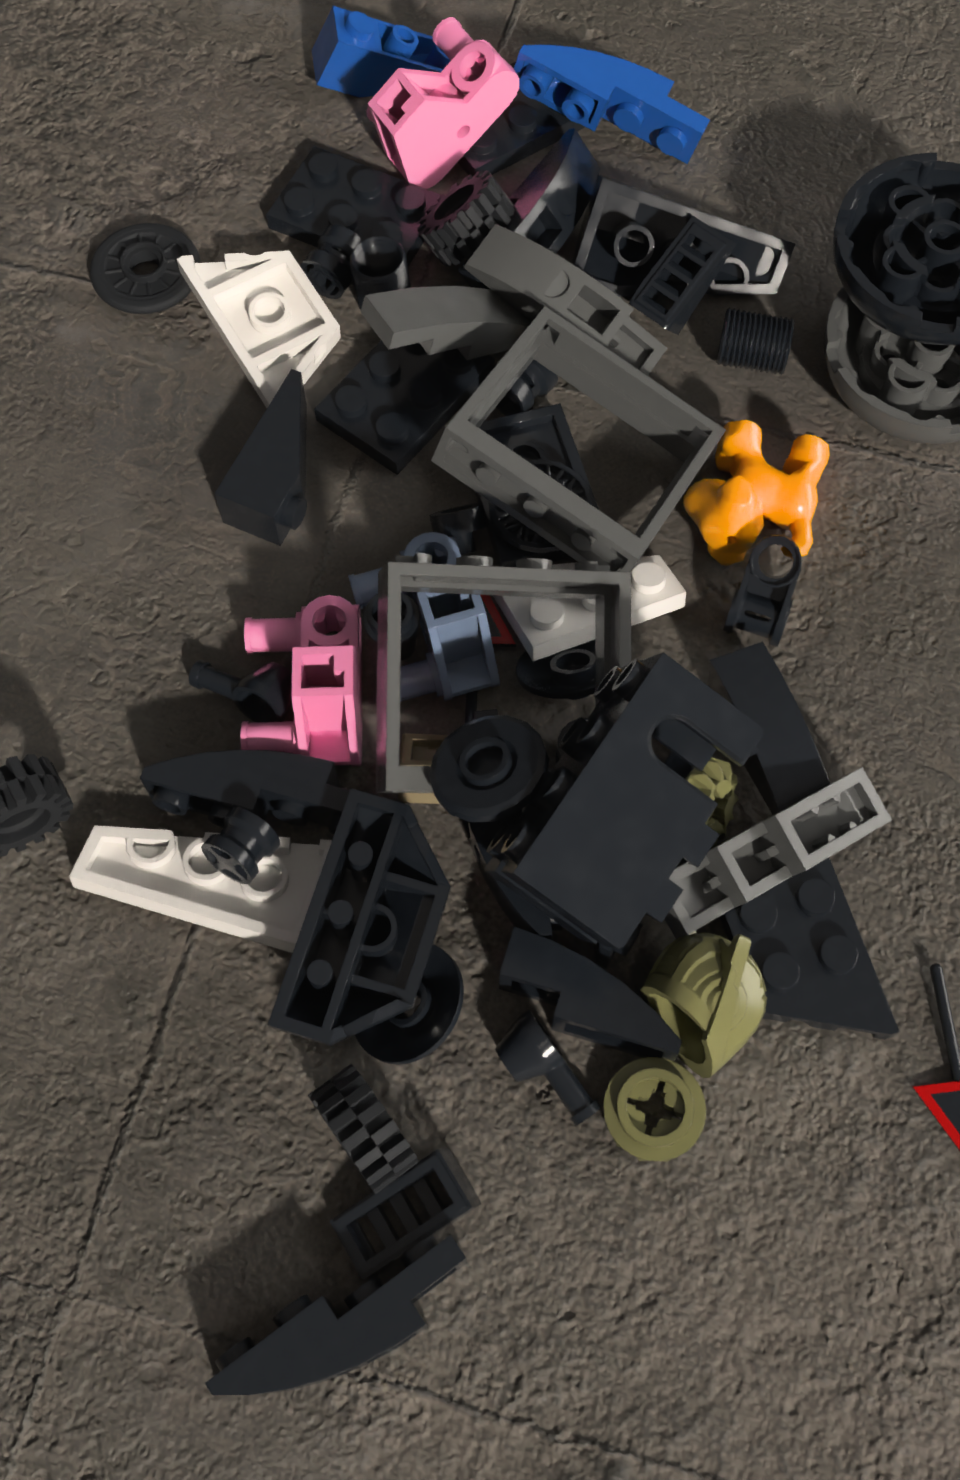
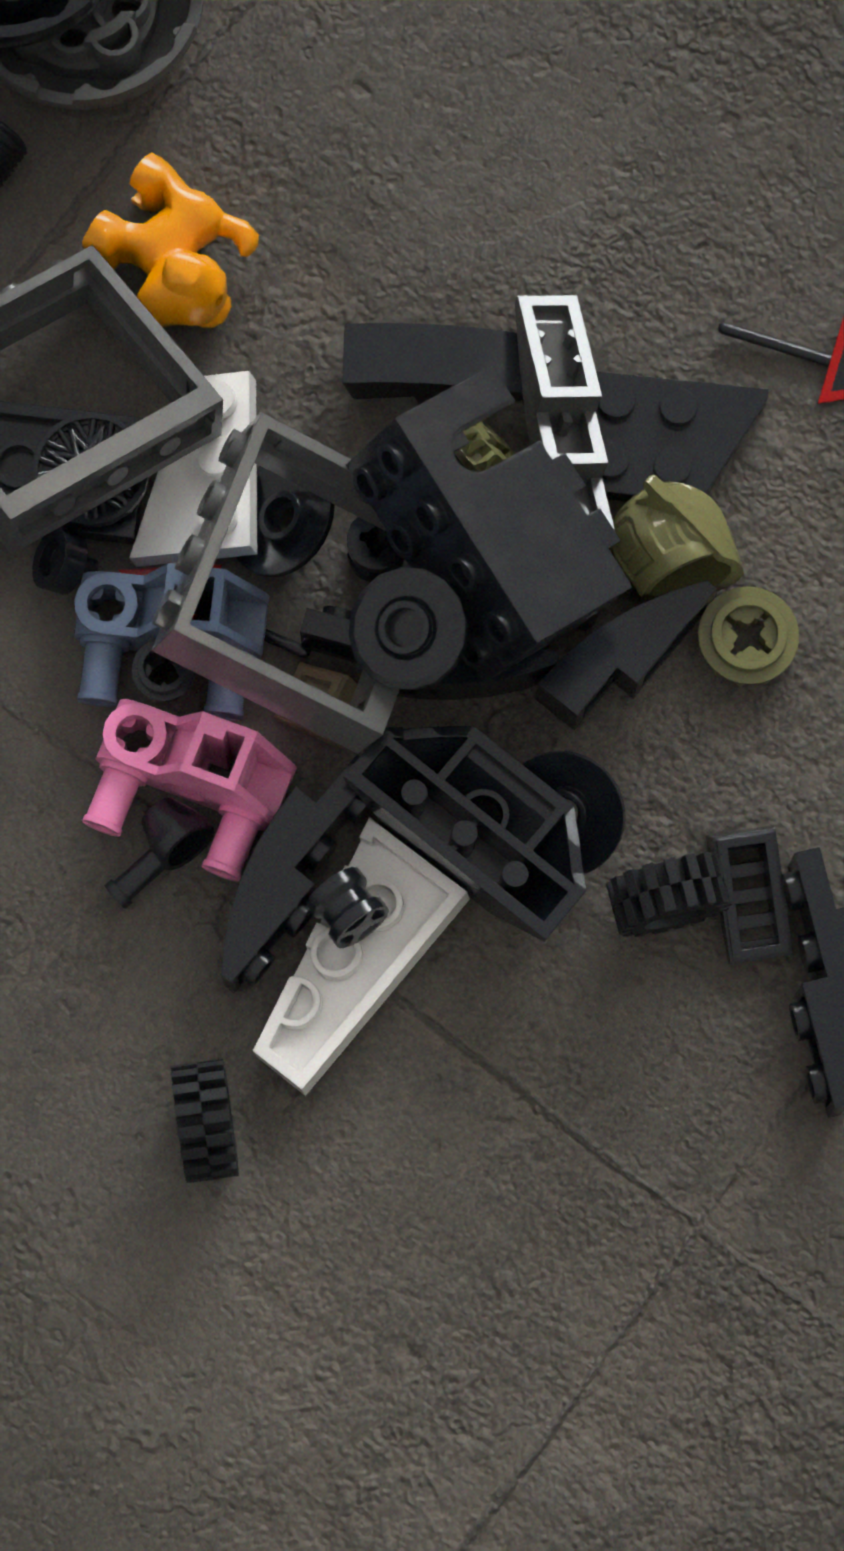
camera: 70 degrees left, 10 degrees up
(531, 1053) = (654, 721): black bar -> none
(765, 594) = (291, 297): black piece -> none

